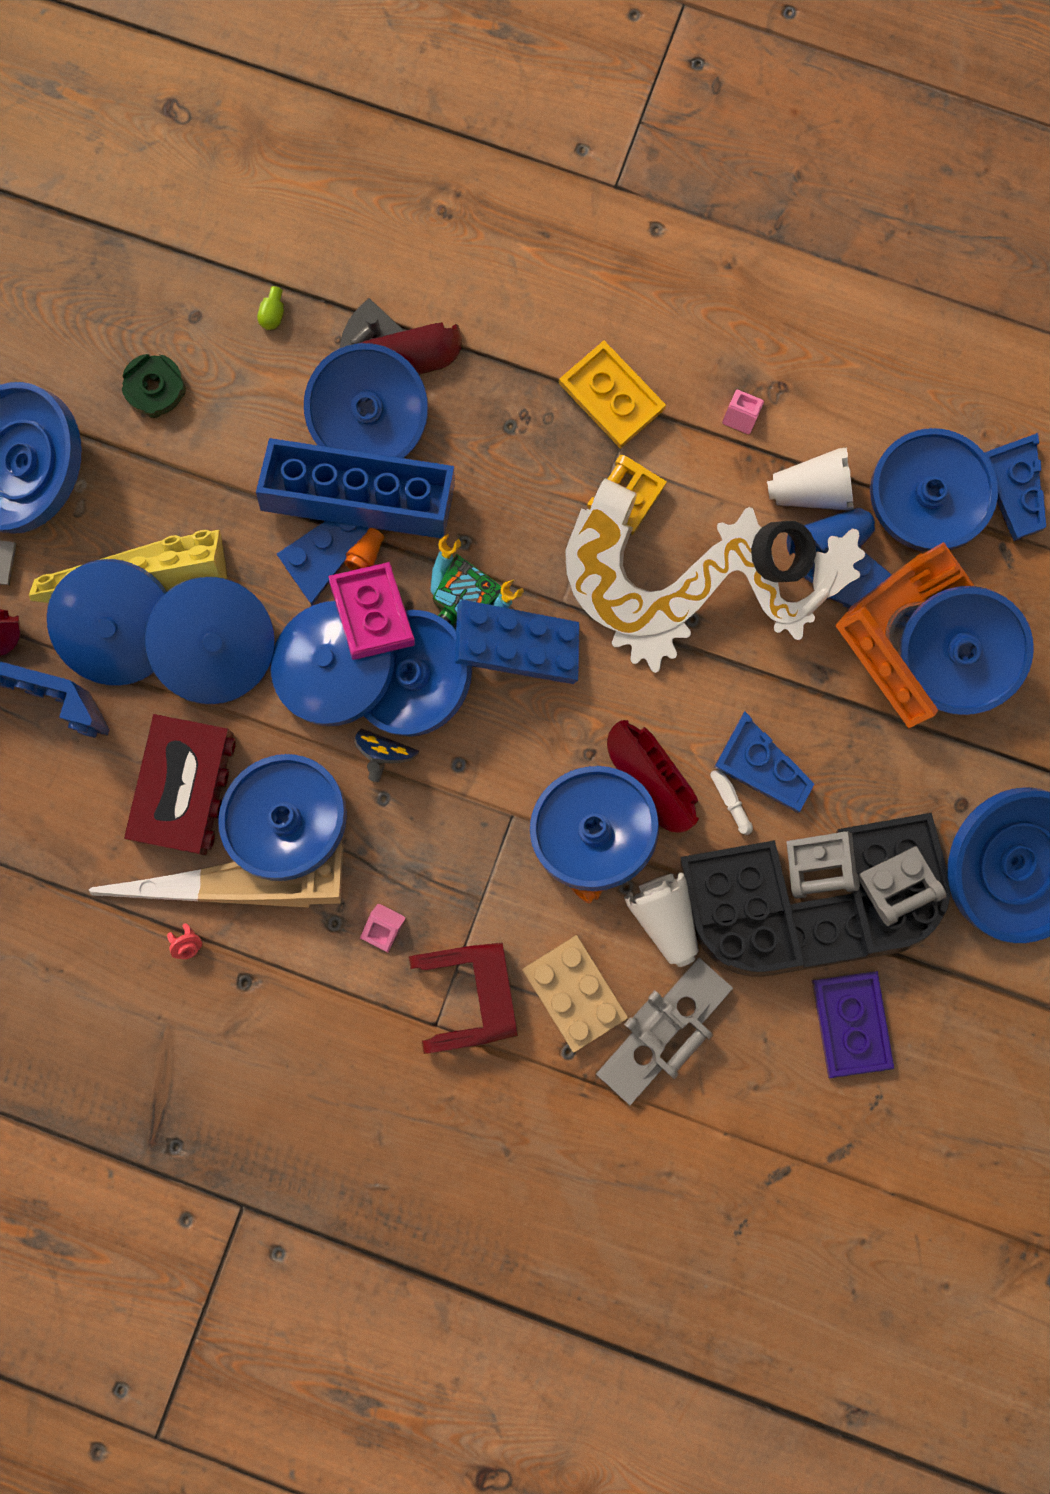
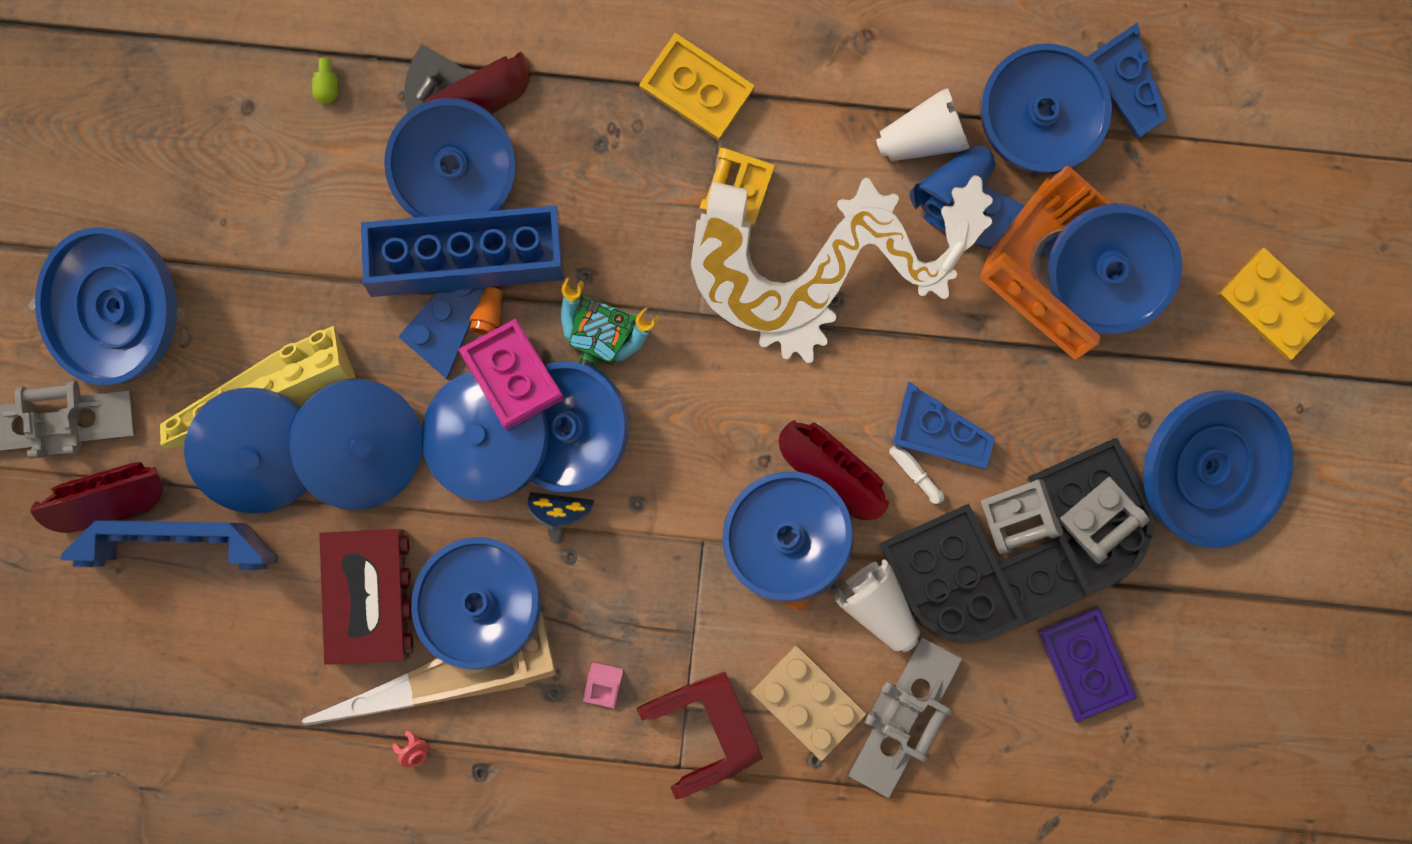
camera: 15 degrees left, 5 degrees up
(157, 401) = (243, 189): dark green plate -> none
(517, 642) = (665, 370): blue plate -> none
(743, 412) = (834, 71): bright pink slope -> none
(804, 551) = (931, 216): black tyre -> none

